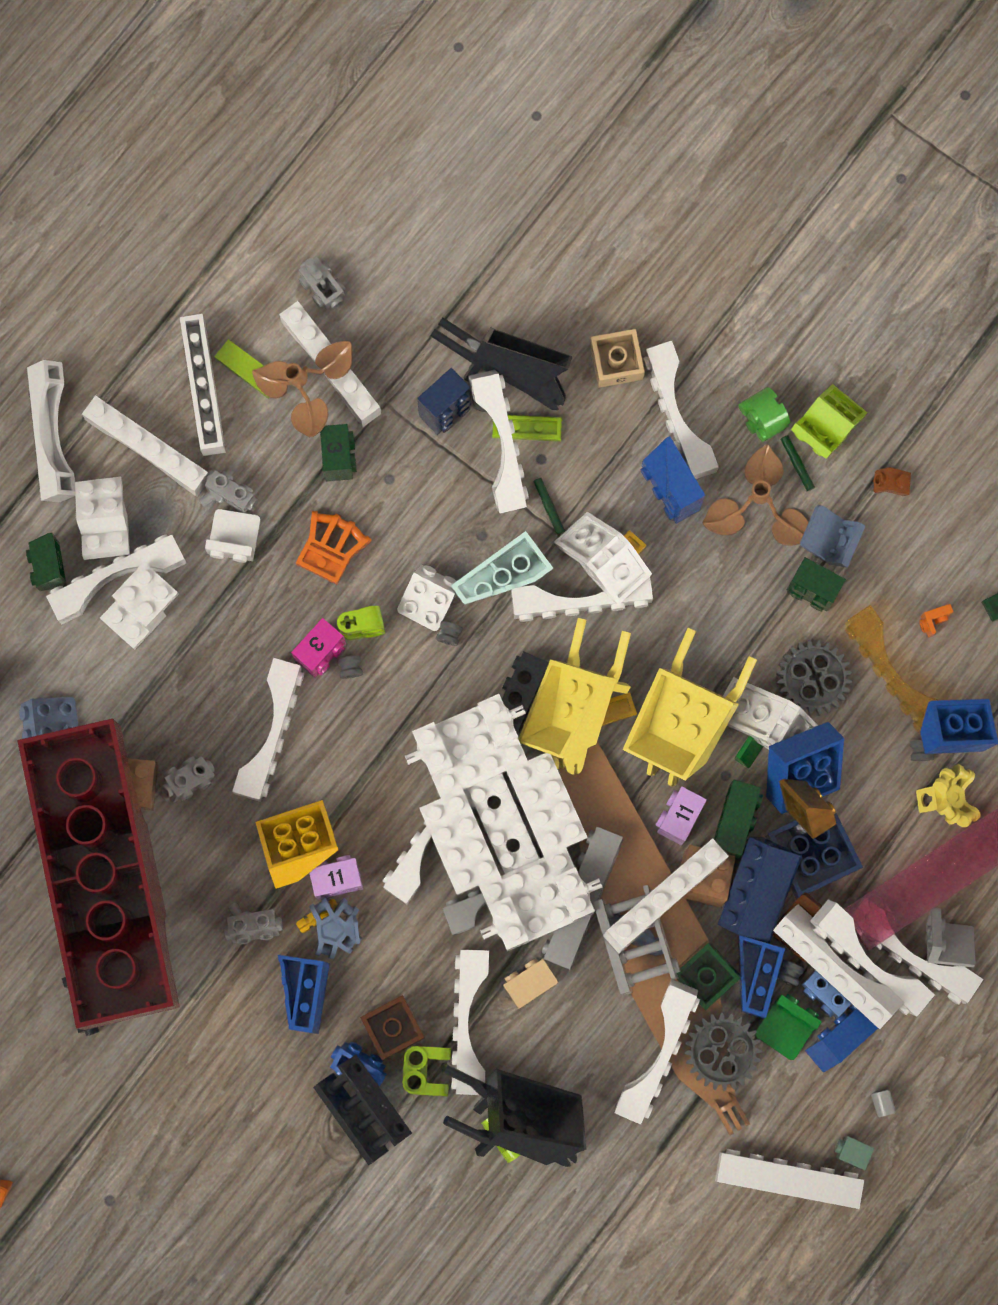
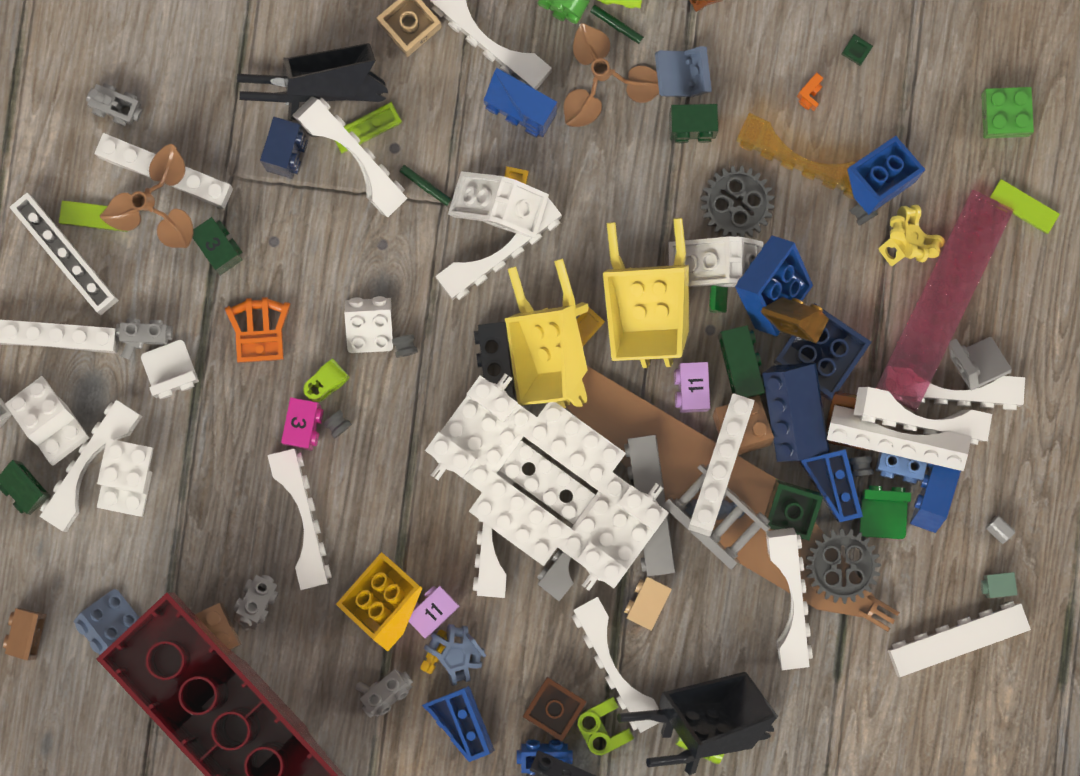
camera: 30 degrees left, 5 degrees up
(507, 569) = (423, 262): light aqua wedge -> none

